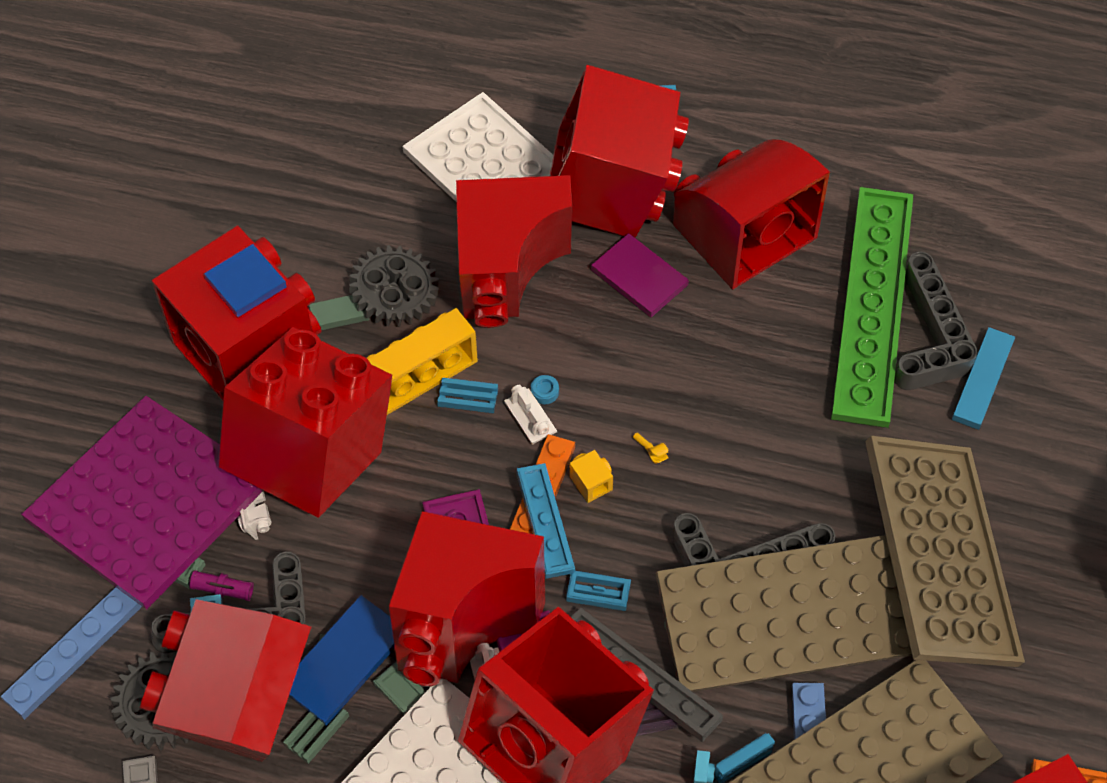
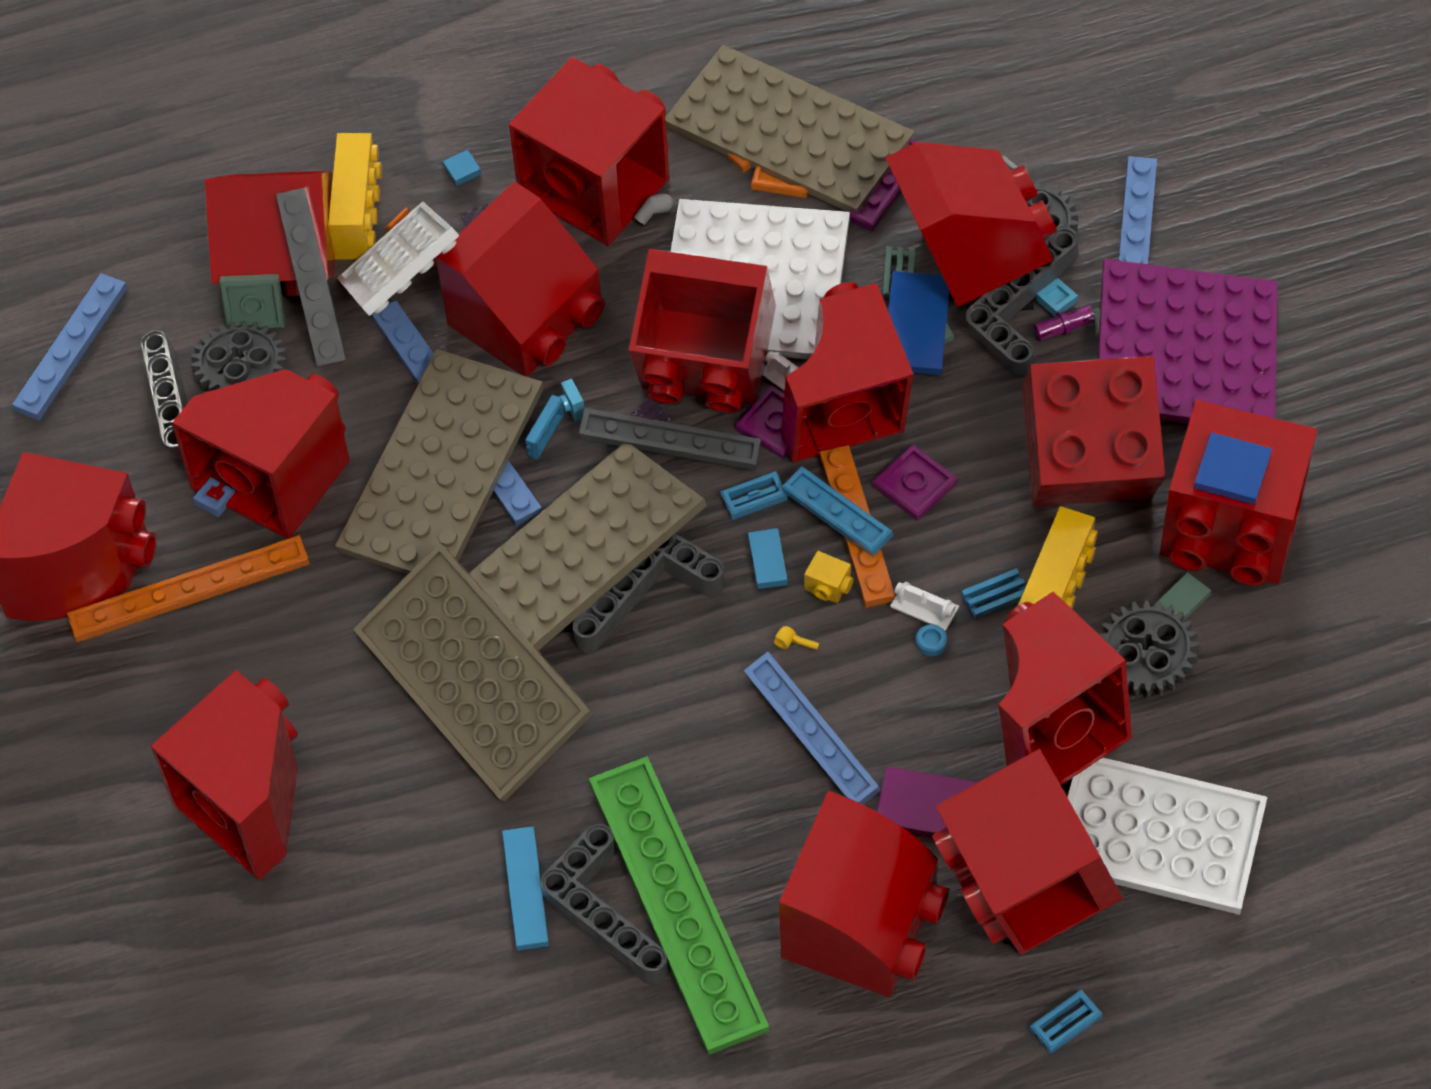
camera: 150 degrees right, 0 degrees up
(625, 527) = (767, 558): none -> dark azure tile
(689, 369) = (812, 729): none -> medium blue plate

